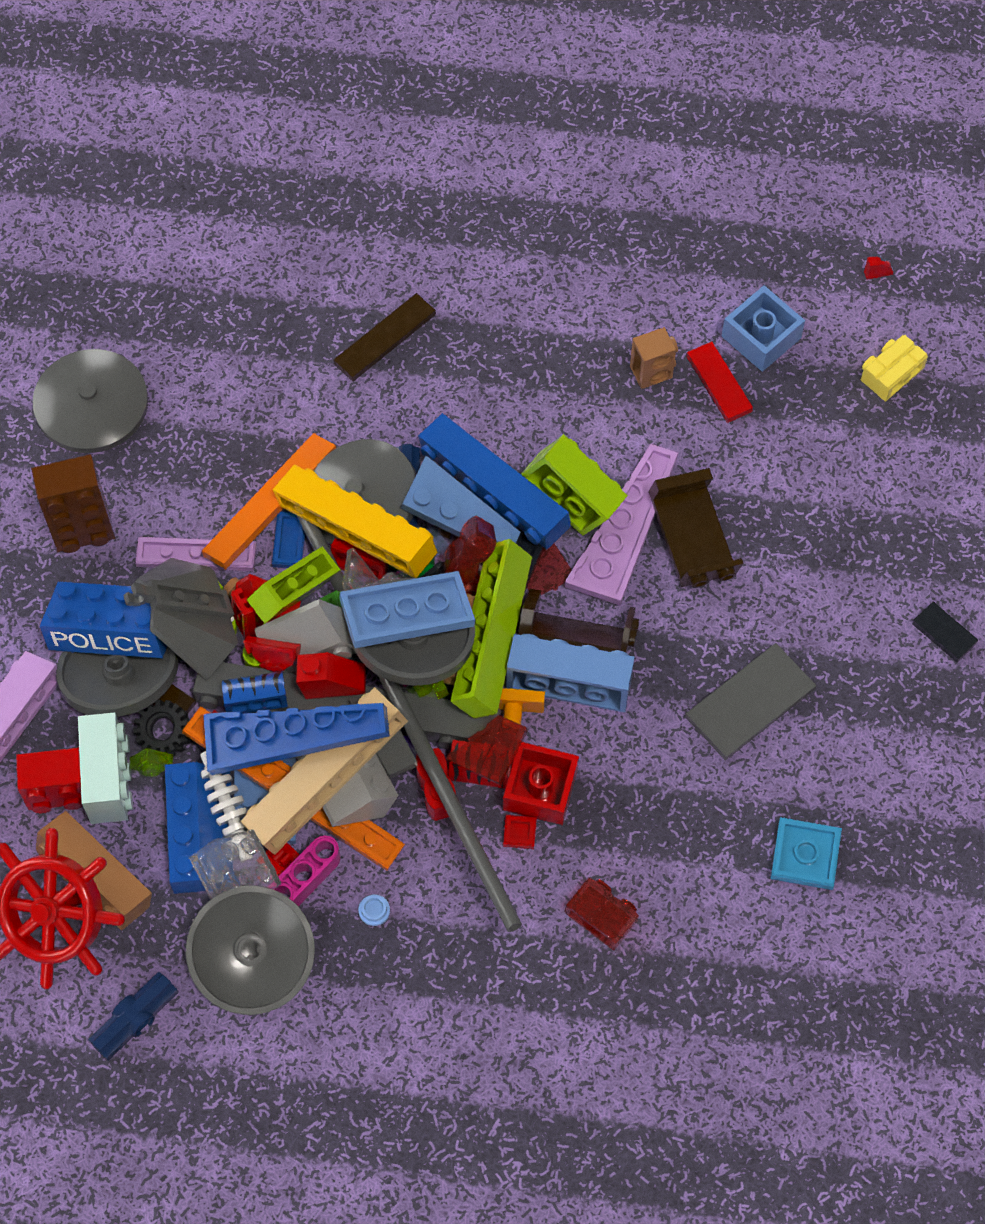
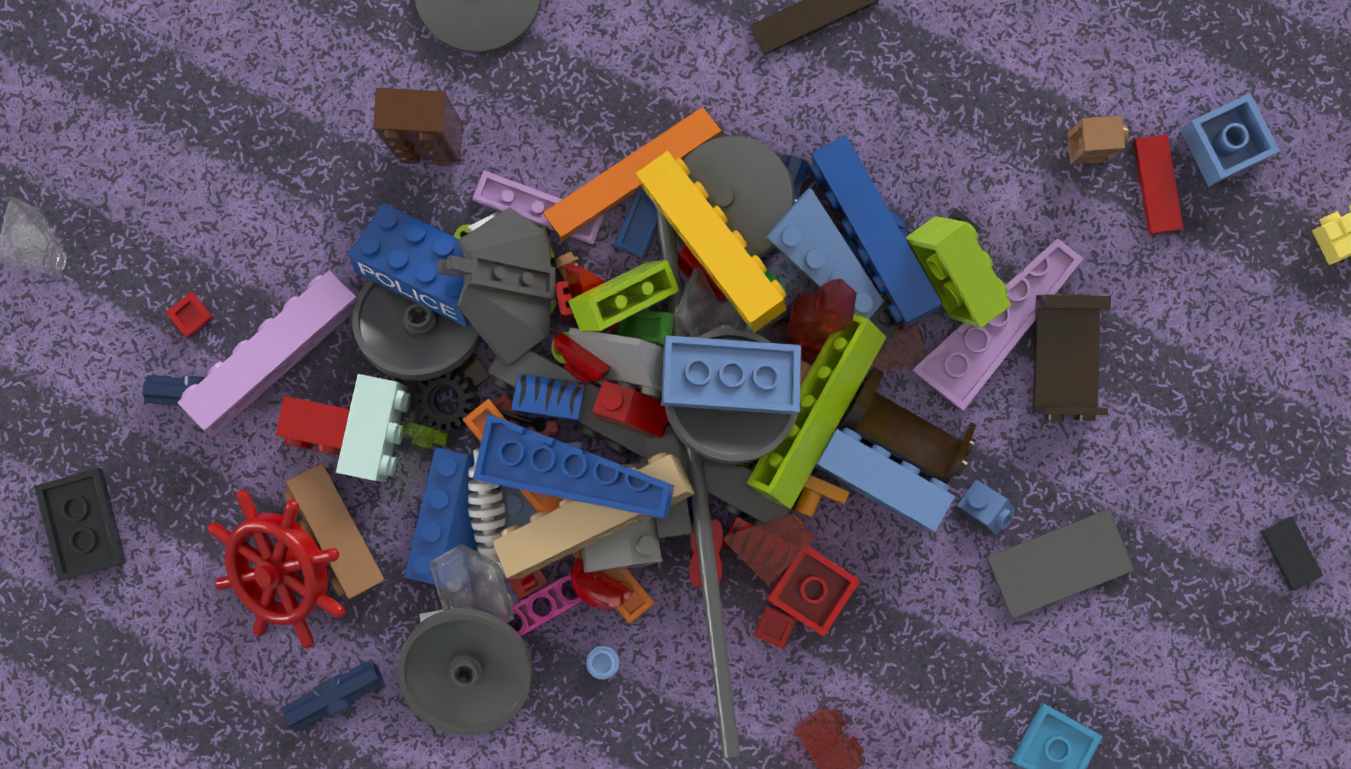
camera: 20 degrees right, 20 degrees up
(349, 838) = (597, 588): none -> red tile
(671, 672) = (987, 507): none -> medium blue bracket

